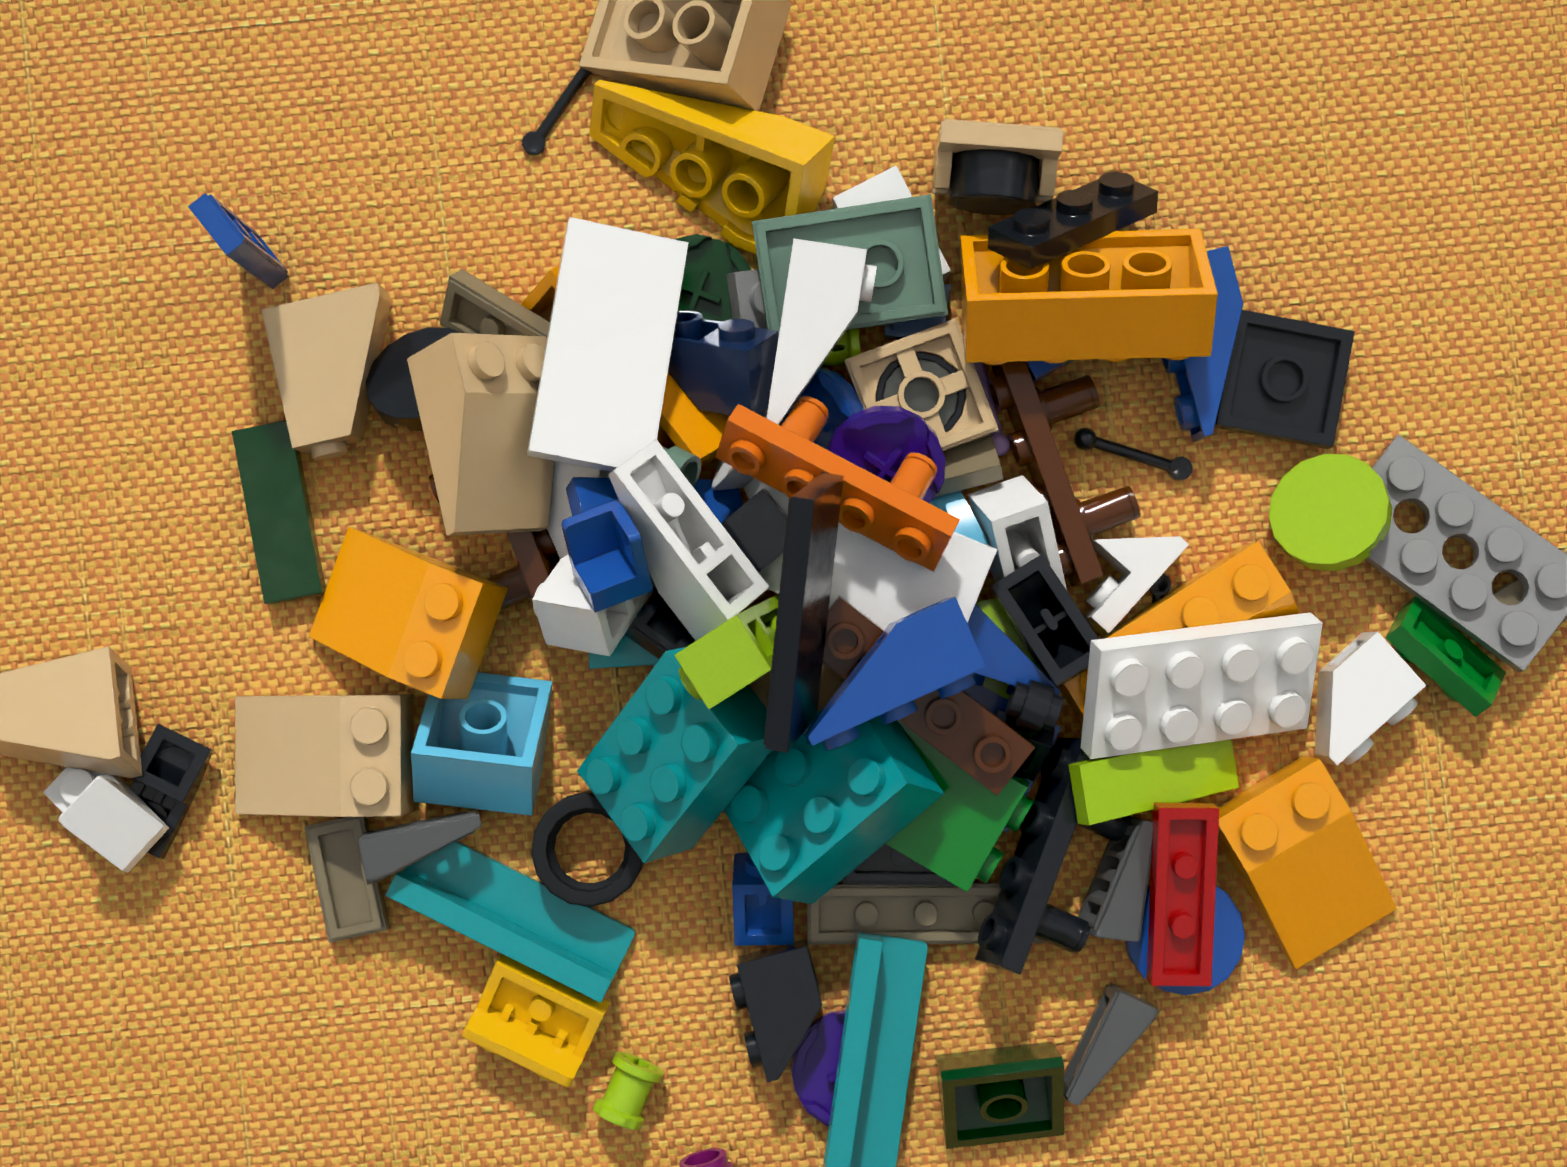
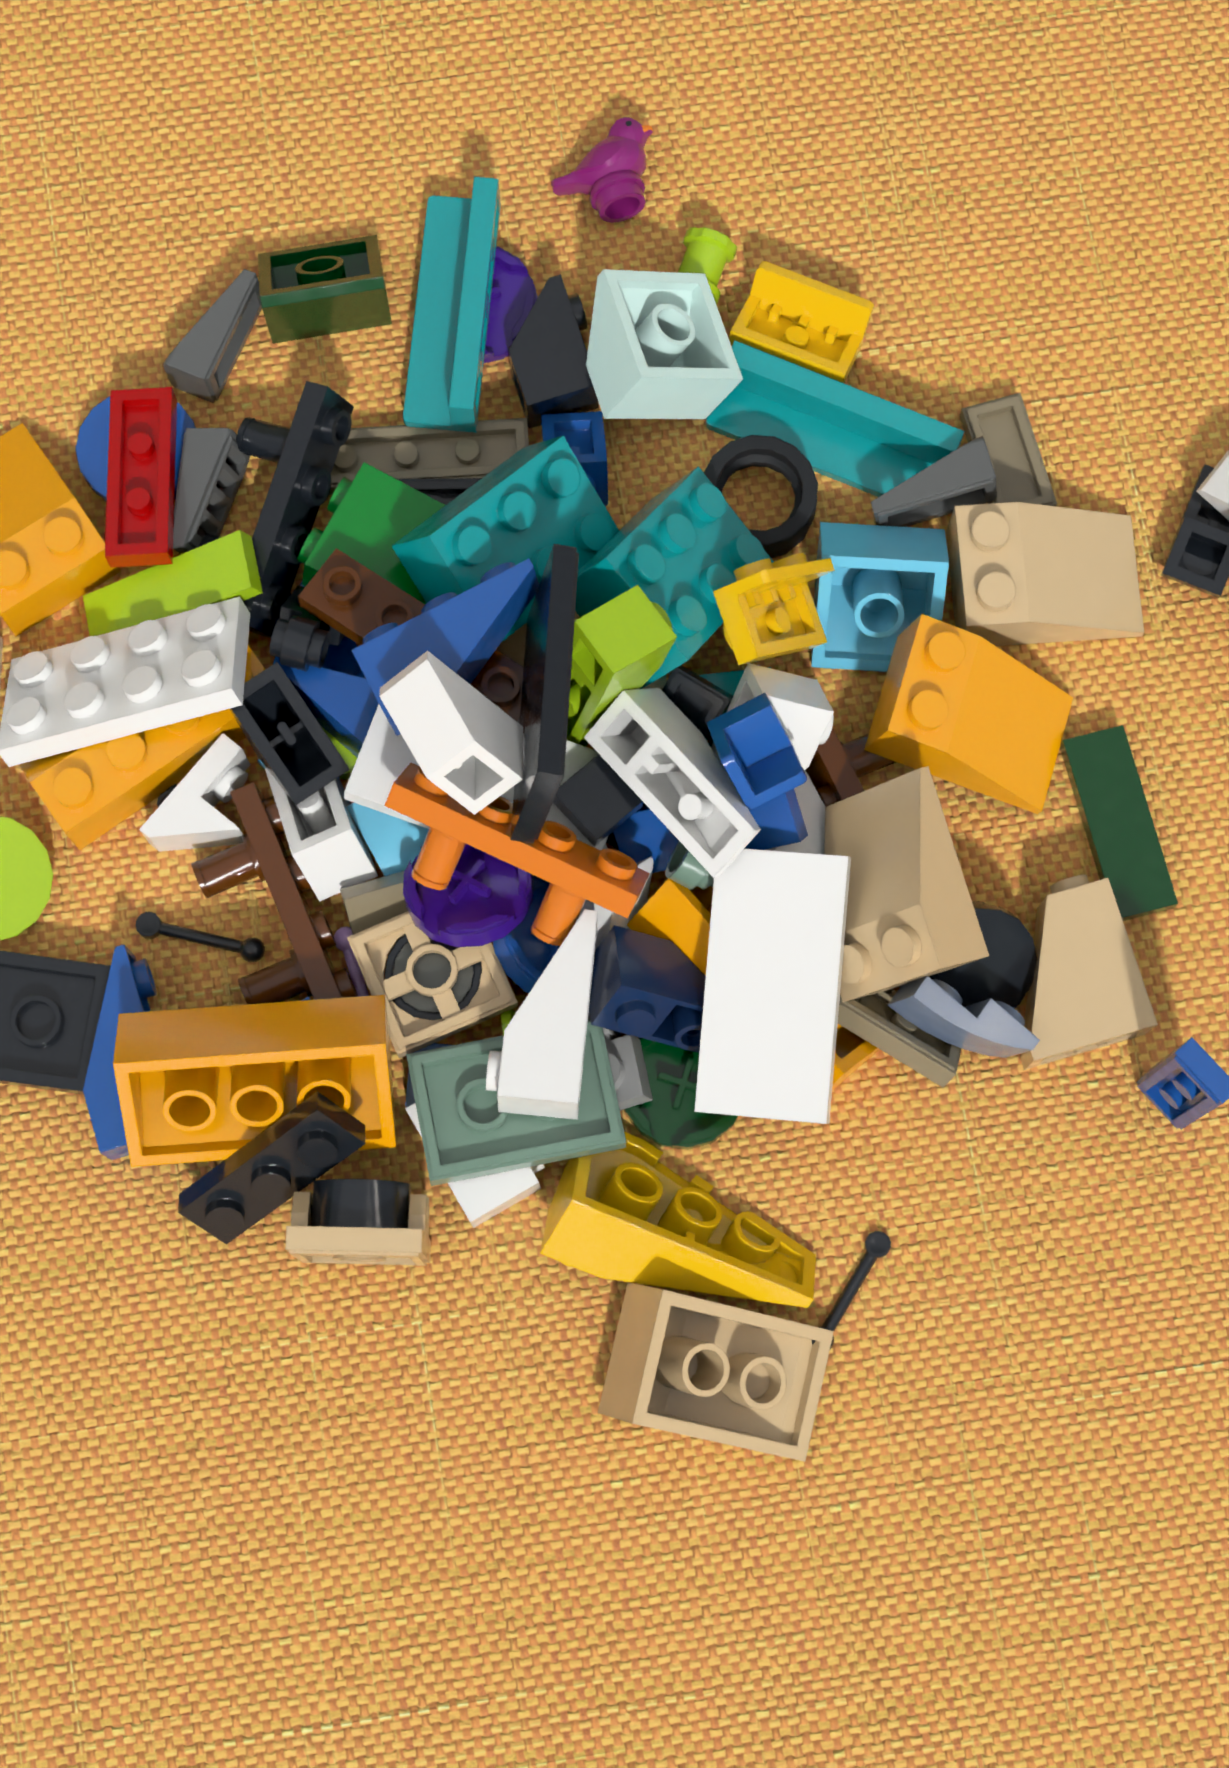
camera: 170 degrees right, 10 degrees down
(417, 313) = (982, 1028): none -> slope
(582, 710) = (772, 608): none -> yellow bracket
(674, 997) = (658, 346): none -> light aqua slope
(889, 570) = (455, 732): none -> white slope

